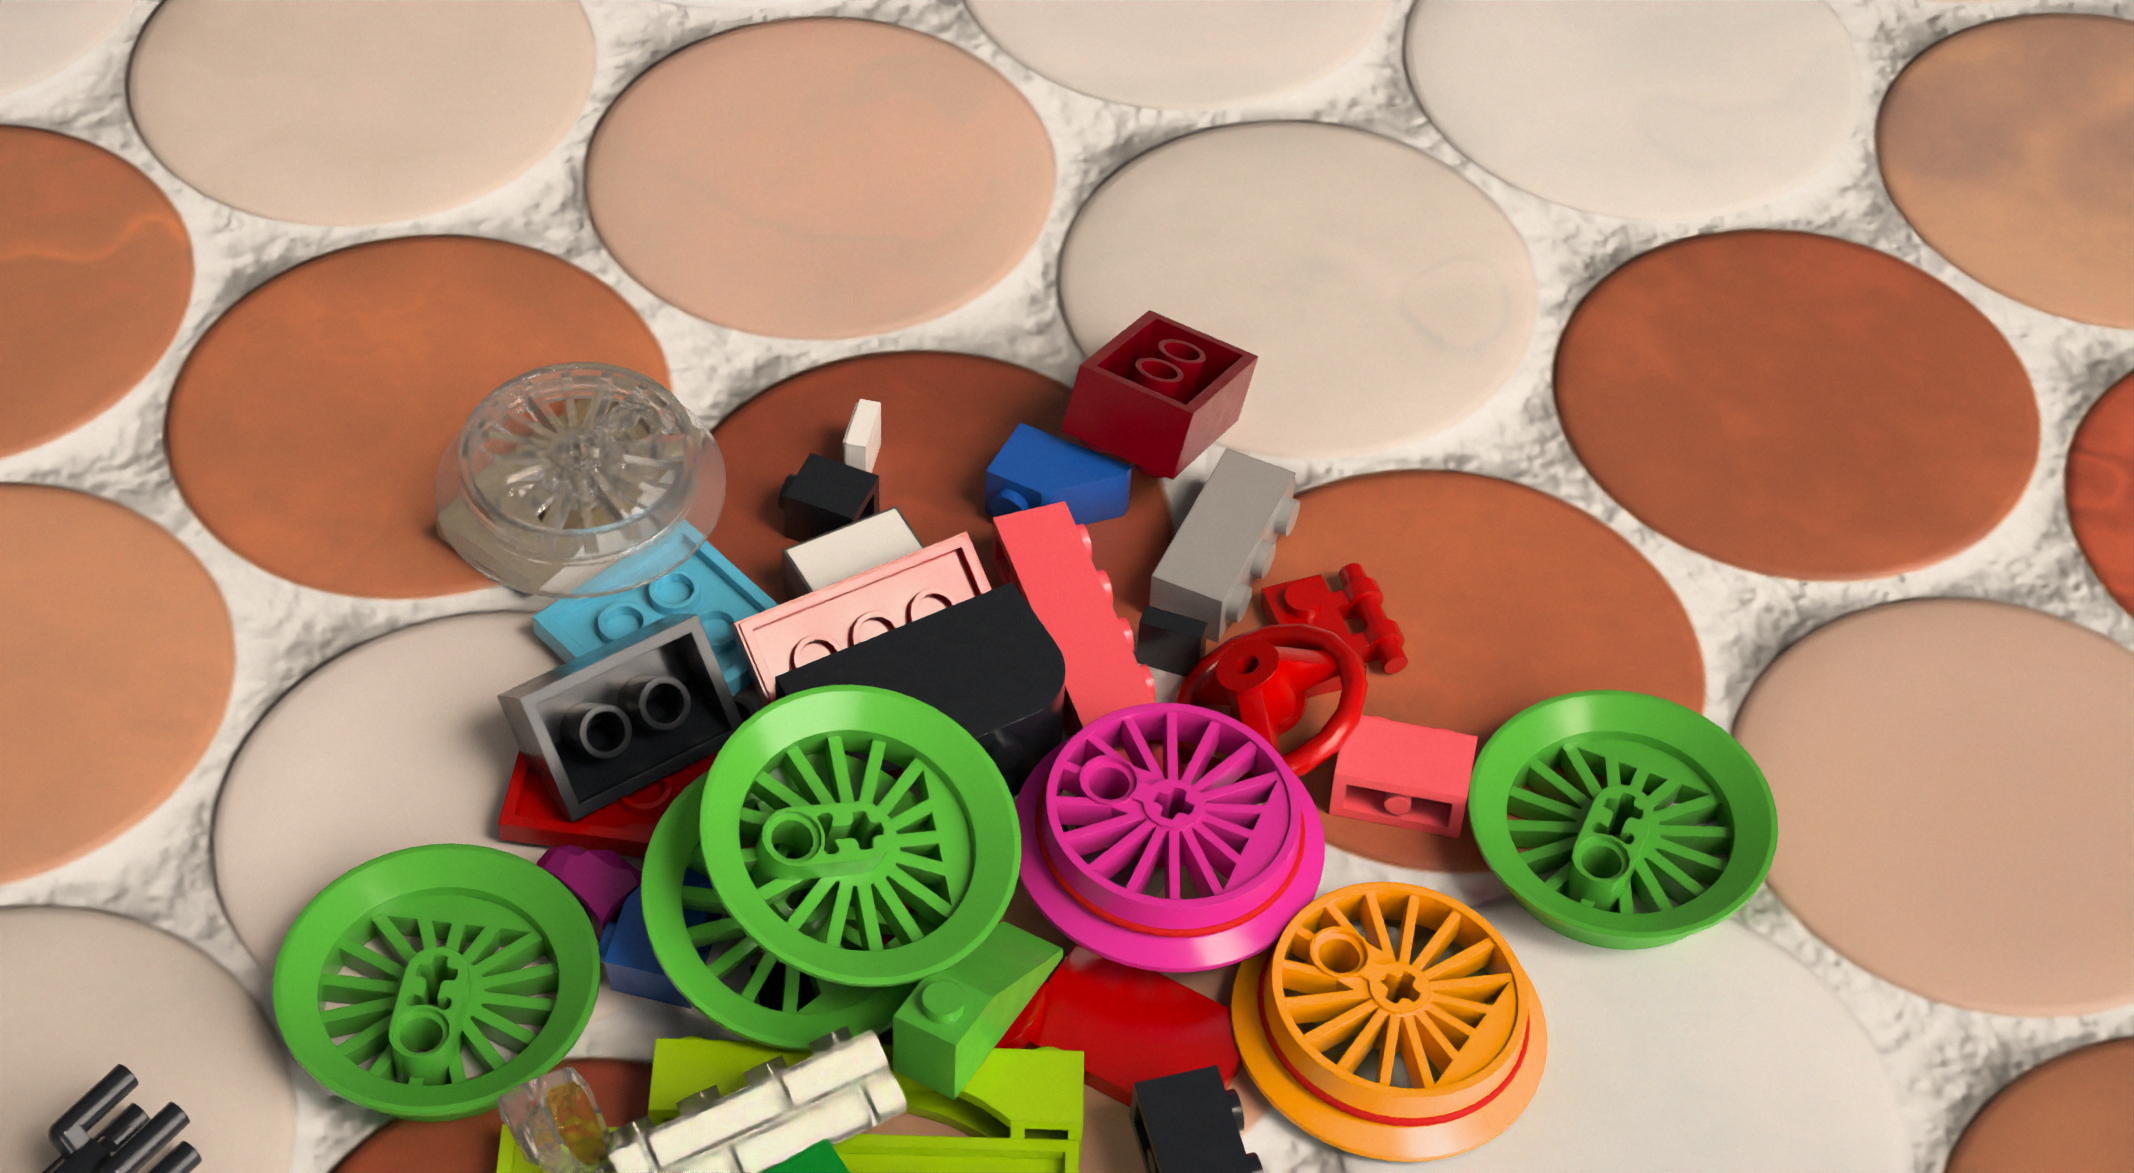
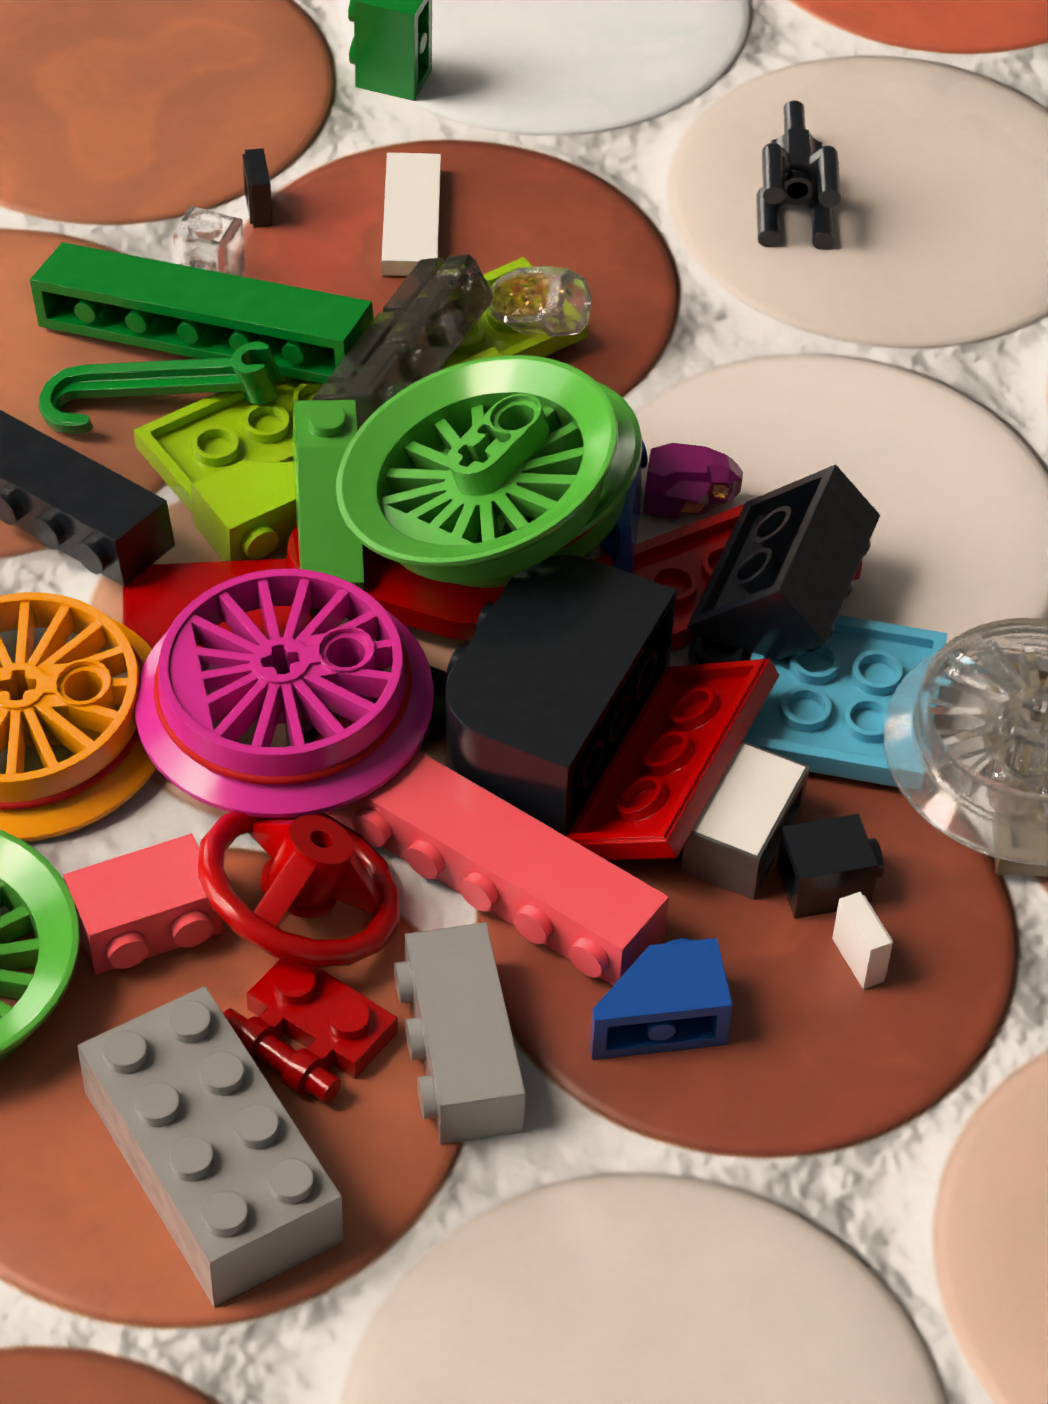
camera: 145 degrees right, 0 degrees up
(452, 896) = (704, 369): bright green piece -> none
(1158, 395) = (628, 1095): dark red brick -> none
(1170, 641) = (431, 905): black tile -> none
(1477, 568) = (211, 1145): none -> light grey brick

